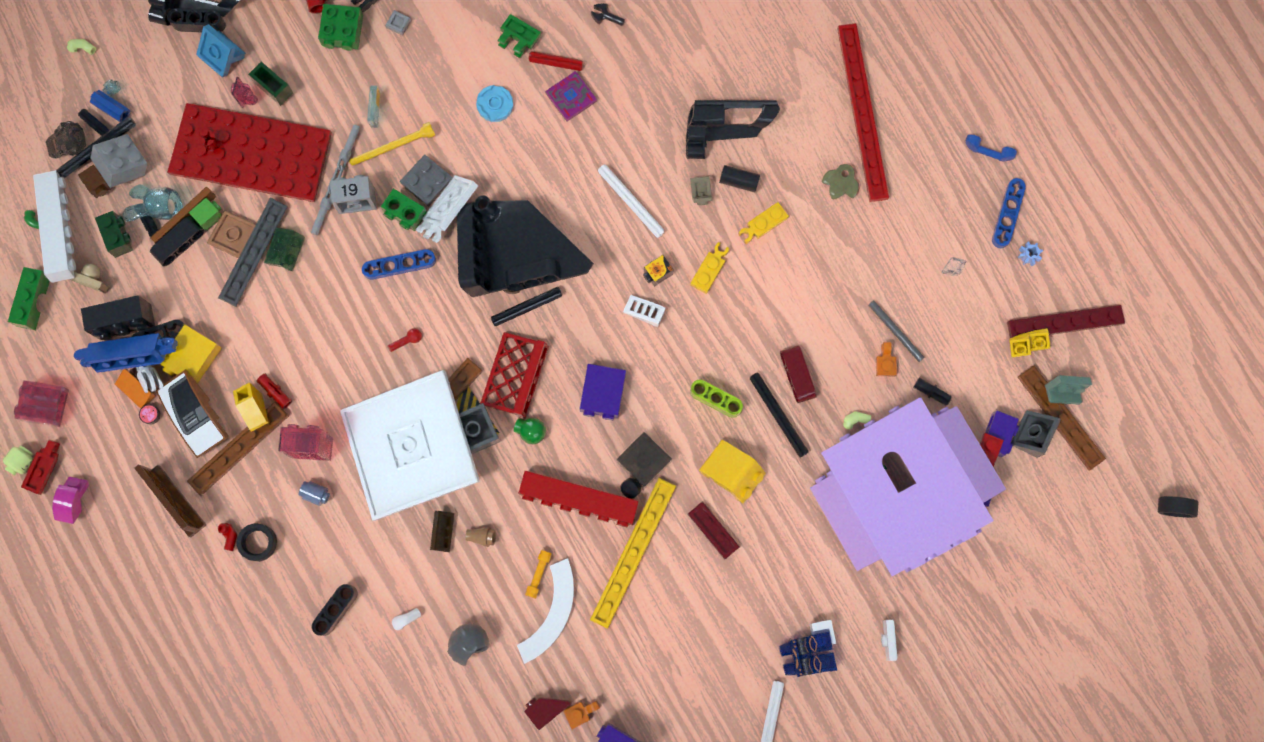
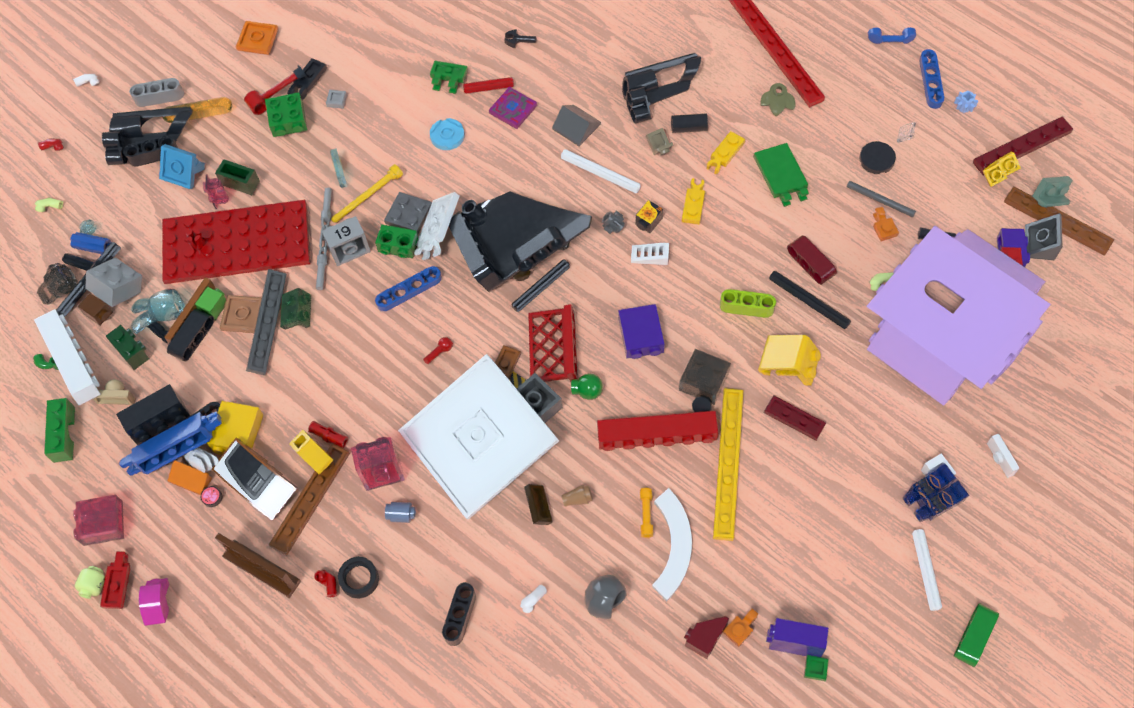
camera: 15 degrees left, 15 degrees down
(620, 264) = (613, 222): none -> dark grey gear
(626, 137) = (575, 124): none -> dark grey slope
(810, 266) = (782, 173): none -> green tile
(913, 283) = (877, 157): none -> black tile

